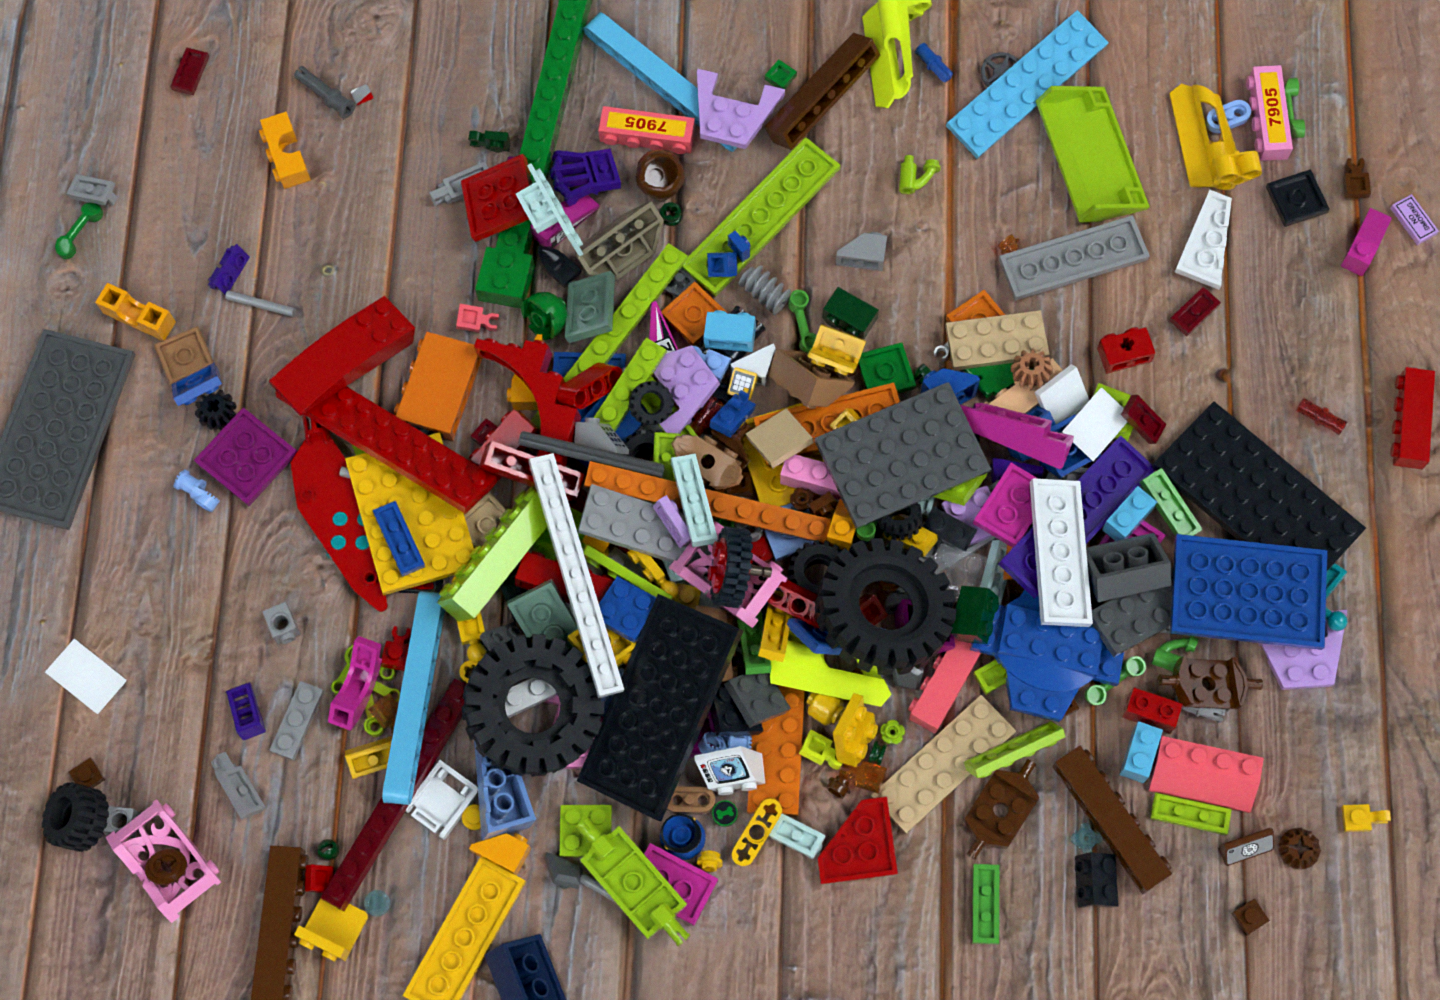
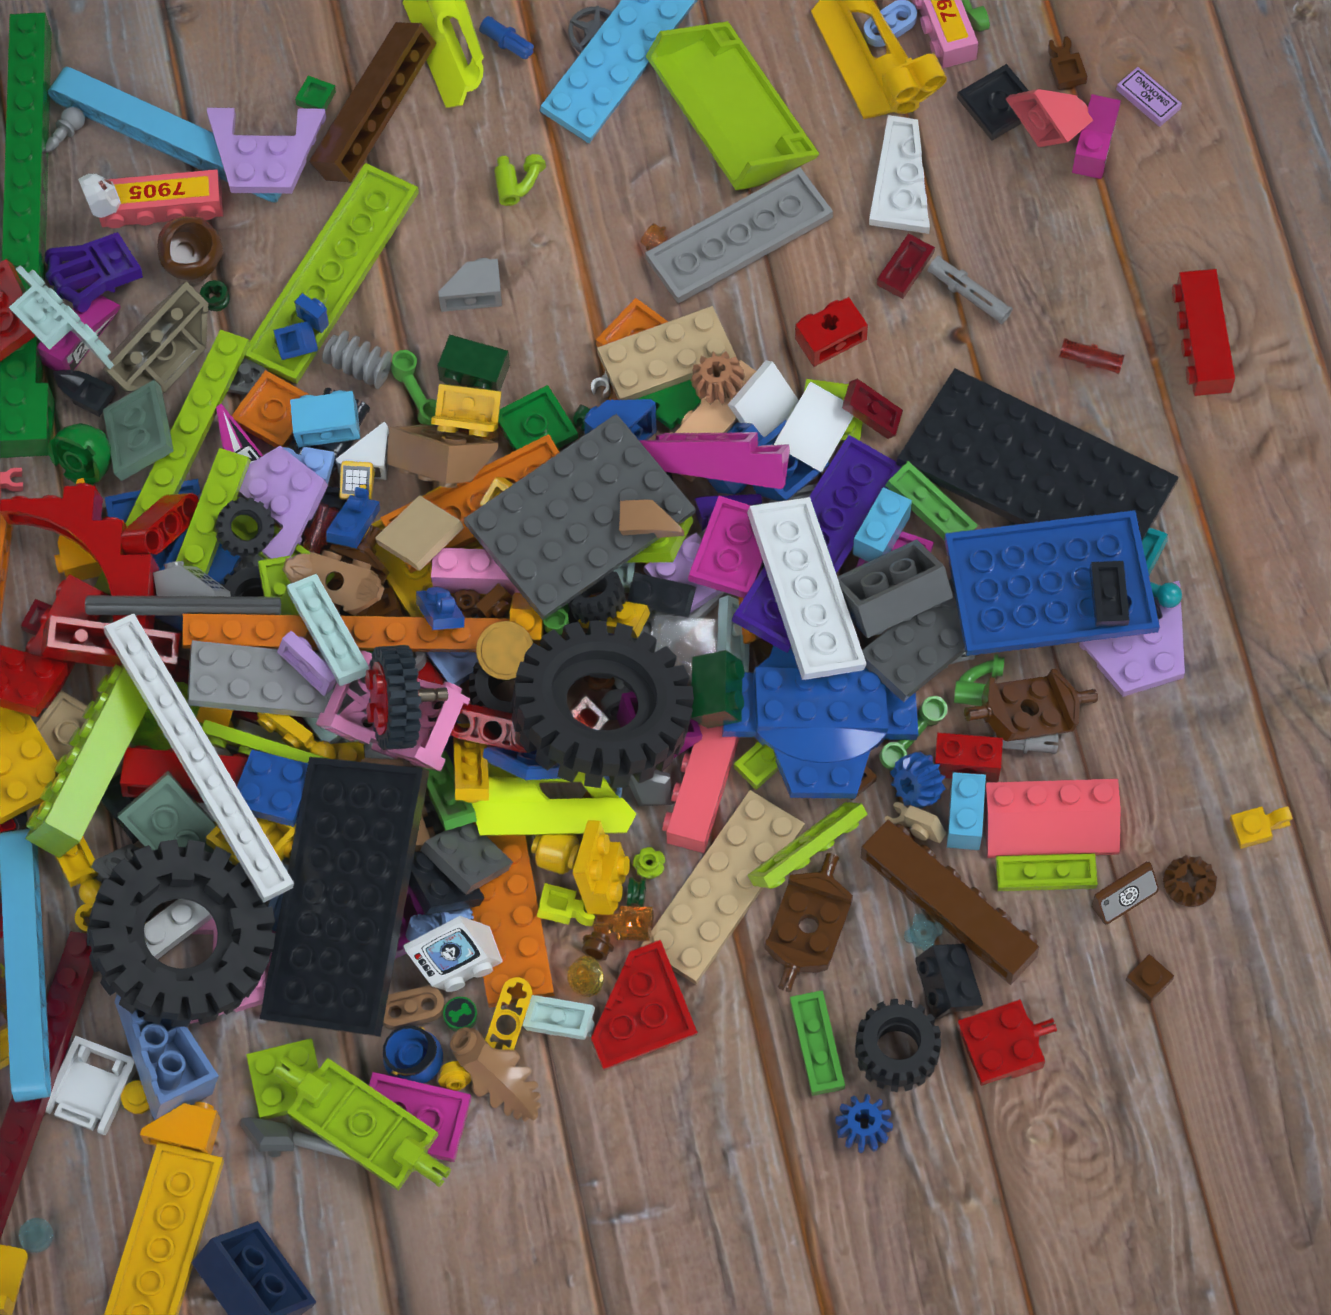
camera: 15 degrees left, 5 degrees down
(595, 54) = (71, 120): none -> light grey bar
(603, 119) = (100, 195): none -> white rock
(741, 867) = (496, 1073): none -> medium nougat plant
(781, 500) = (439, 608): none -> blue plate
(821, 544) = (502, 649): none -> pearl gold piece
(824, 809) = (585, 976): none -> clear yellow hat
(953, 470) = (646, 518): none -> medium nougat slope
(1015, 973) = (876, 1123): none -> blue gear
(1062, 907) = (903, 1019): none -> black tyre
(1104, 753) = (921, 823): none -> tan plate
(1110, 720) = (917, 780): none -> blue gear
(1127, 940) = (1004, 1042): none -> red plate
(1221, 321) = (941, 269): none -> light grey pin
(1292, 613) = (1109, 593): none -> black plate
(1335, 221) = (1050, 115): none -> coral slope

